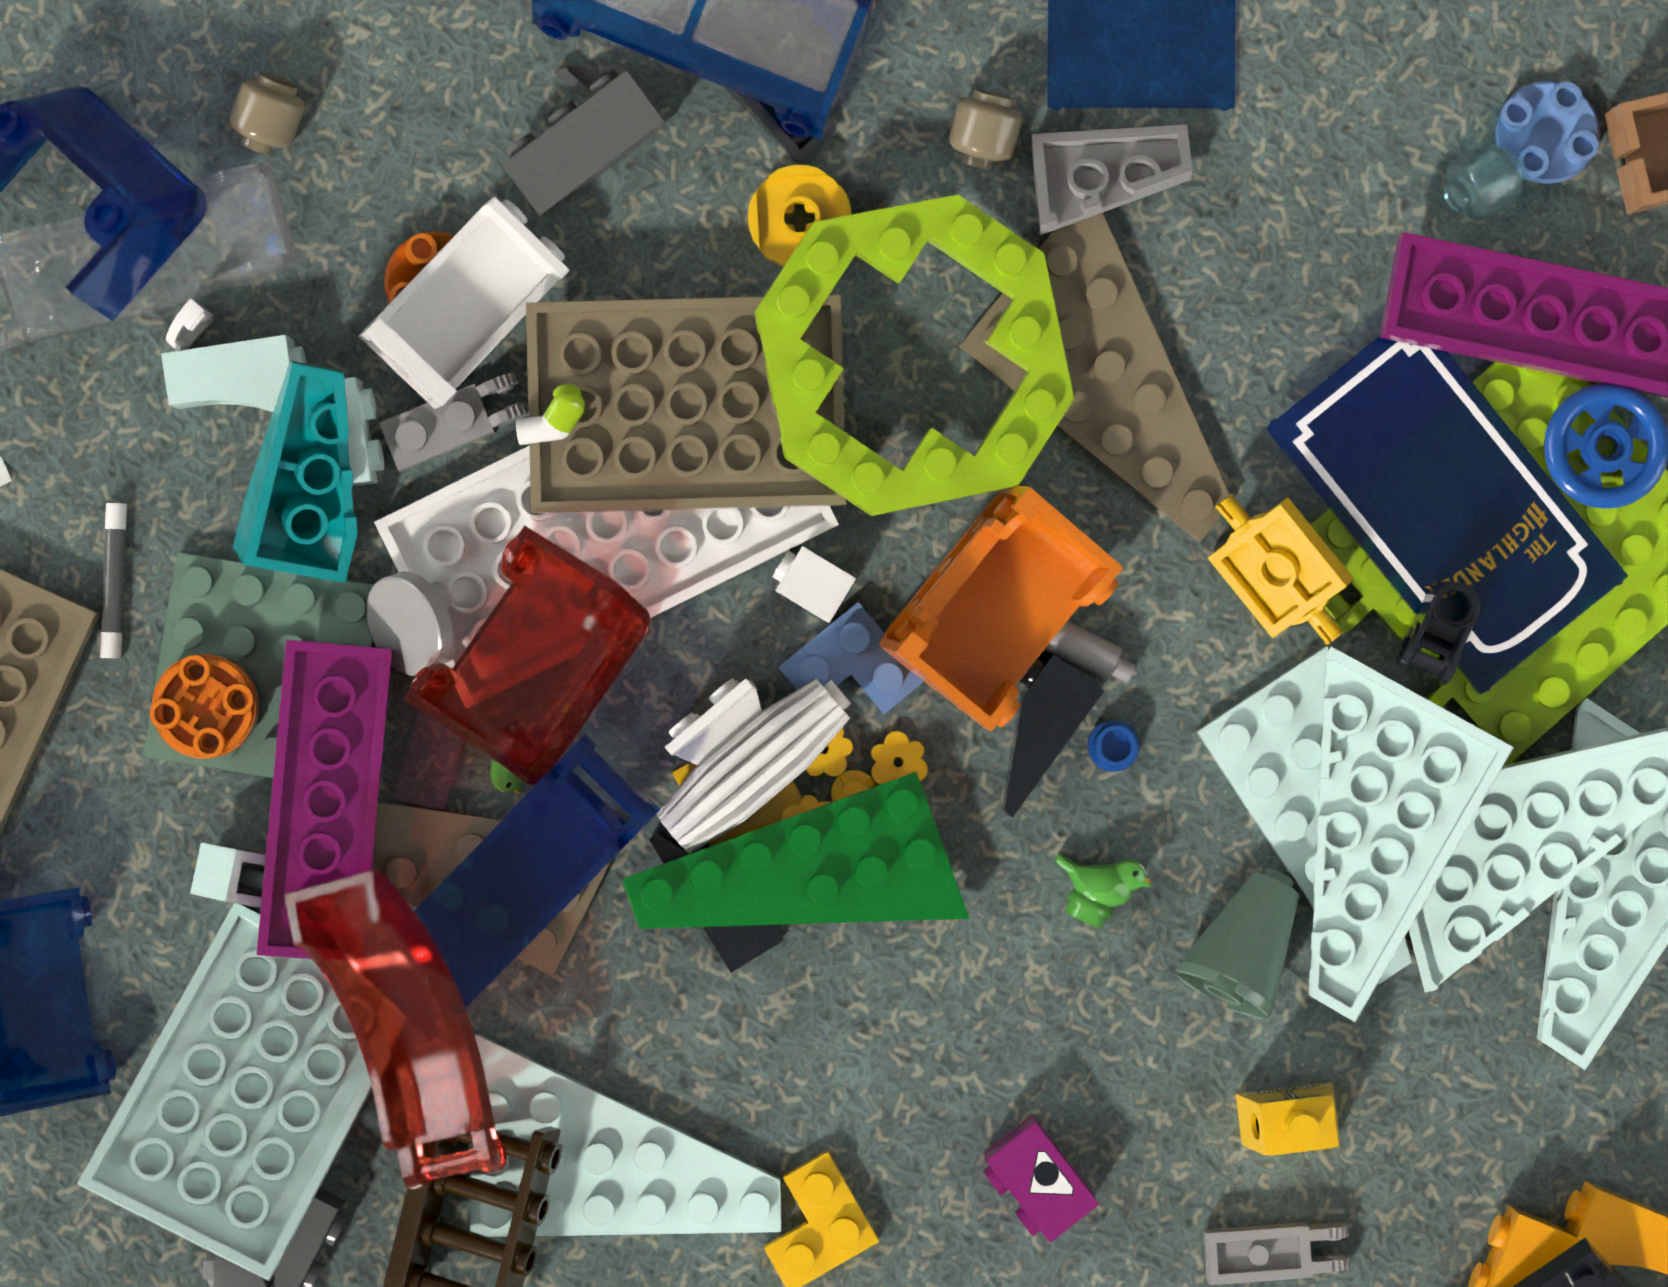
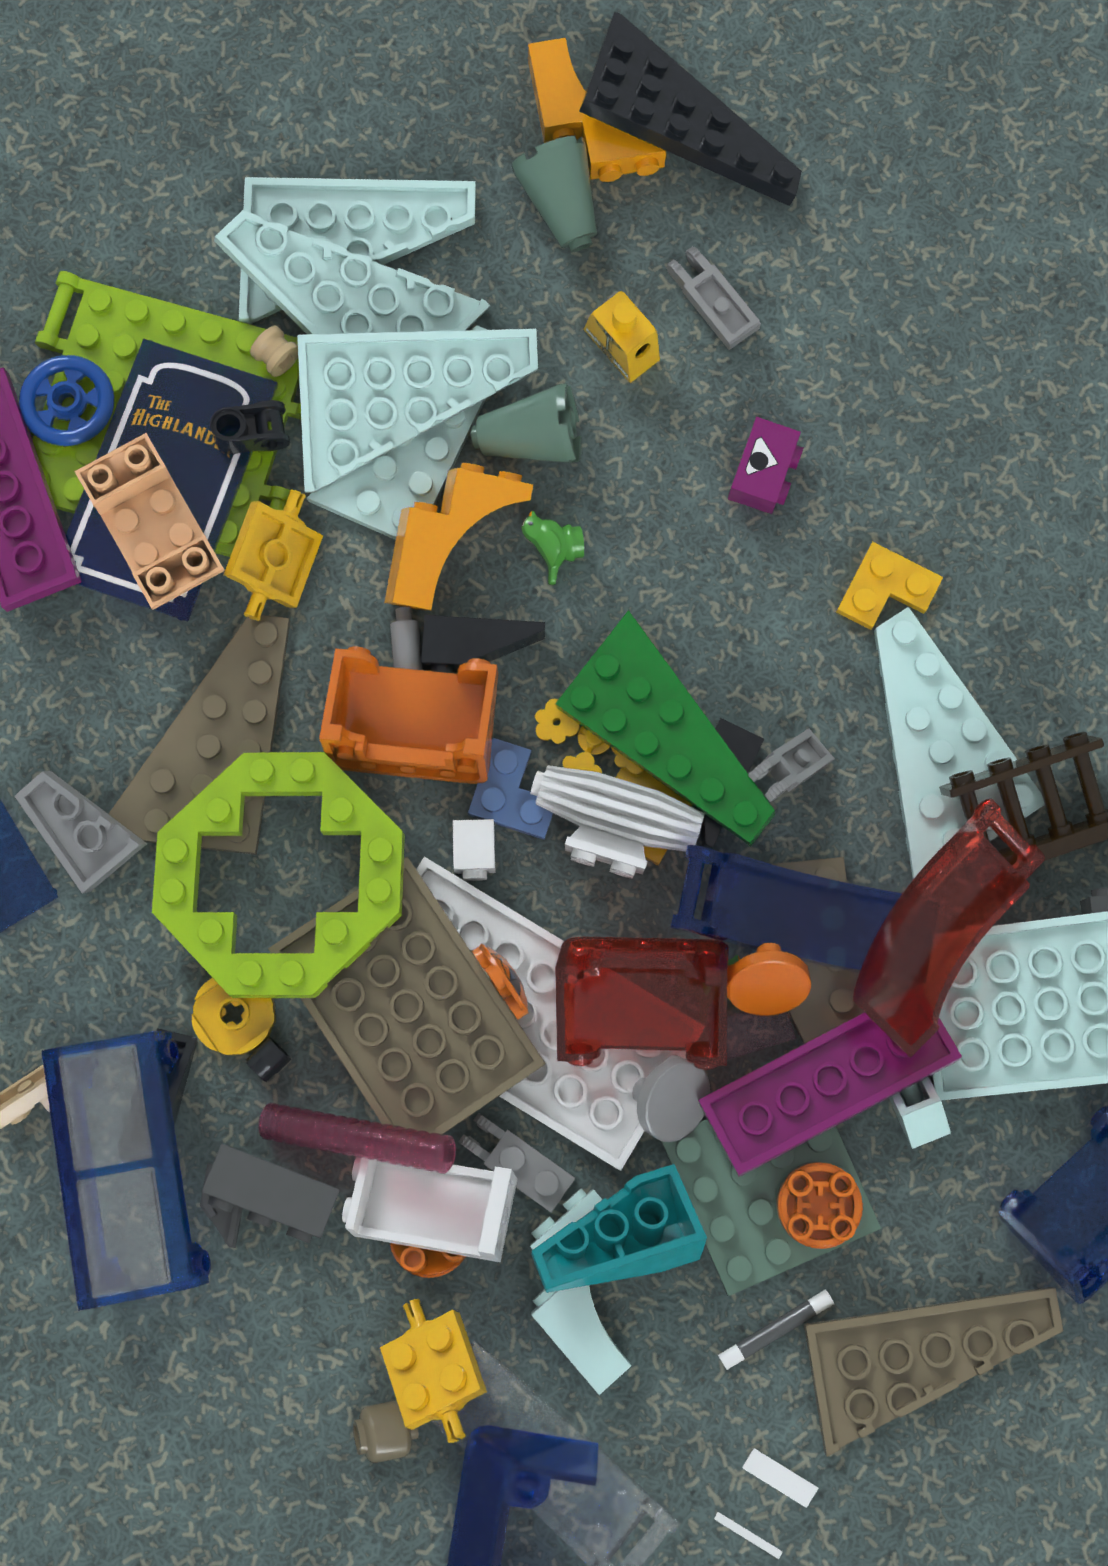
camera: 130 degrees left, 10 degrees down
(195, 320) = (564, 1390): white tile -> none
(295, 199) = (433, 1370): none -> yellow plate
(466, 804) = (768, 981): none -> orange tile
(557, 420) = (471, 1083): arm -> none
(578, 266) = (357, 1137): none -> clear pink piece
(645, 522) = (504, 979): none -> orange dish
(683, 986) = (793, 763): none -> light grey hinge
(727, 225) = (267, 1059): none -> black hose
(985, 128) = (96, 926): dark tan head -> none
(1113, 745) = (457, 592): blue plate -> none
(1189, 750) = (428, 536): none -> light orange arch
(1396, 452) = (149, 521): none -> light nougat slope
(1507, 1159) = (561, 190): none -> sand green cone
(1516, 713) = (274, 351): none -> tan wheel

